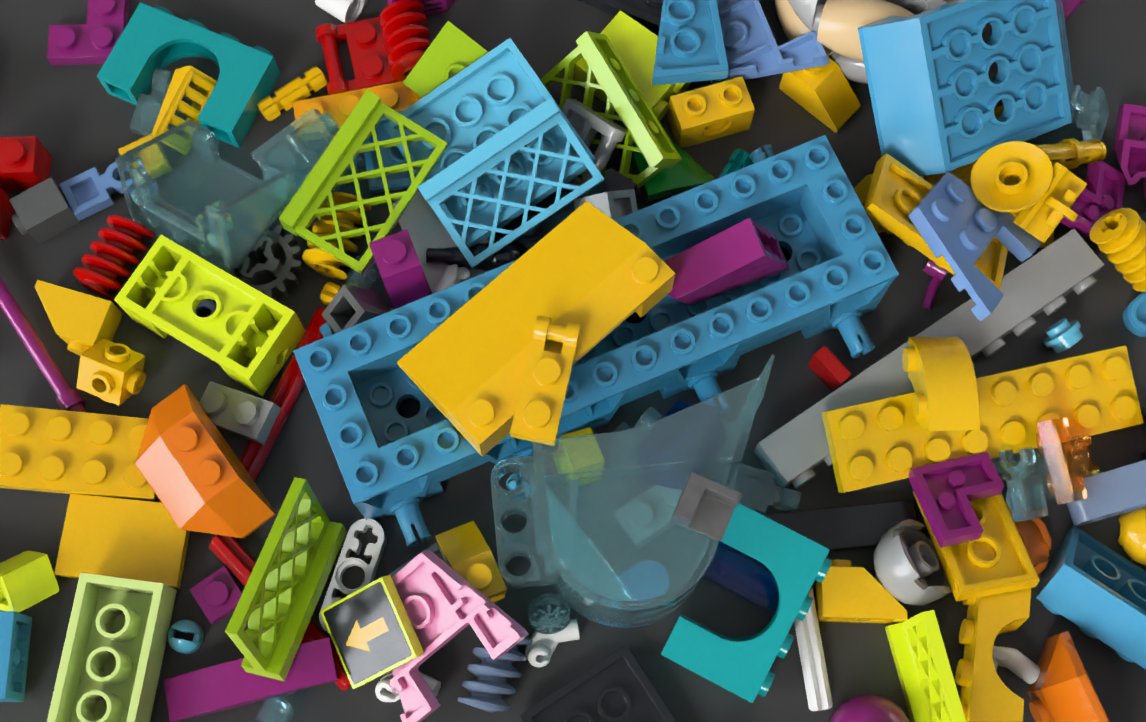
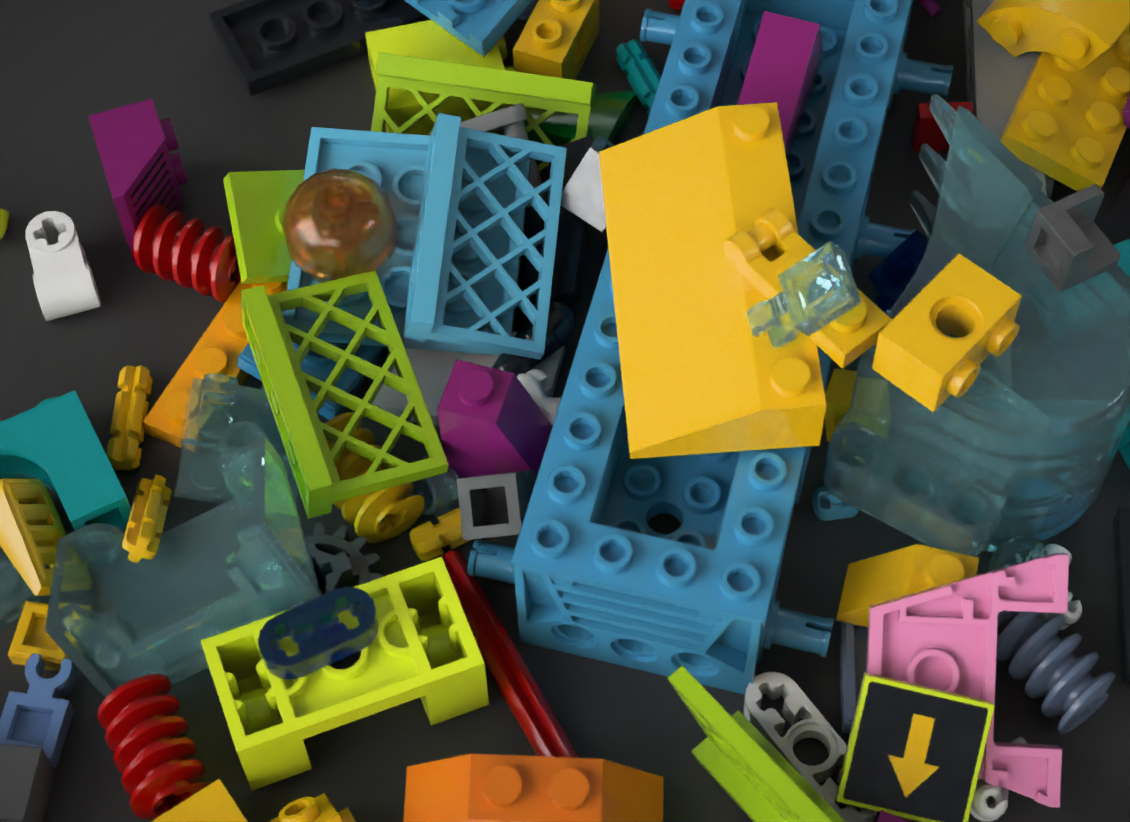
camera: 50 degrees left, 15 degrees down
(197, 294) = (318, 632): none -> beam
(231, 151) = (147, 519): none -> yellow axle
(239, 412) = (504, 725): light grey plate -> none
(366, 53) = (151, 309): red plate -> none
(457, 103) = (339, 225): none -> clear orange cylinder
(520, 389) = (810, 298): none -> clear light blue plate
(550, 461) = (956, 302): none -> yellow brick

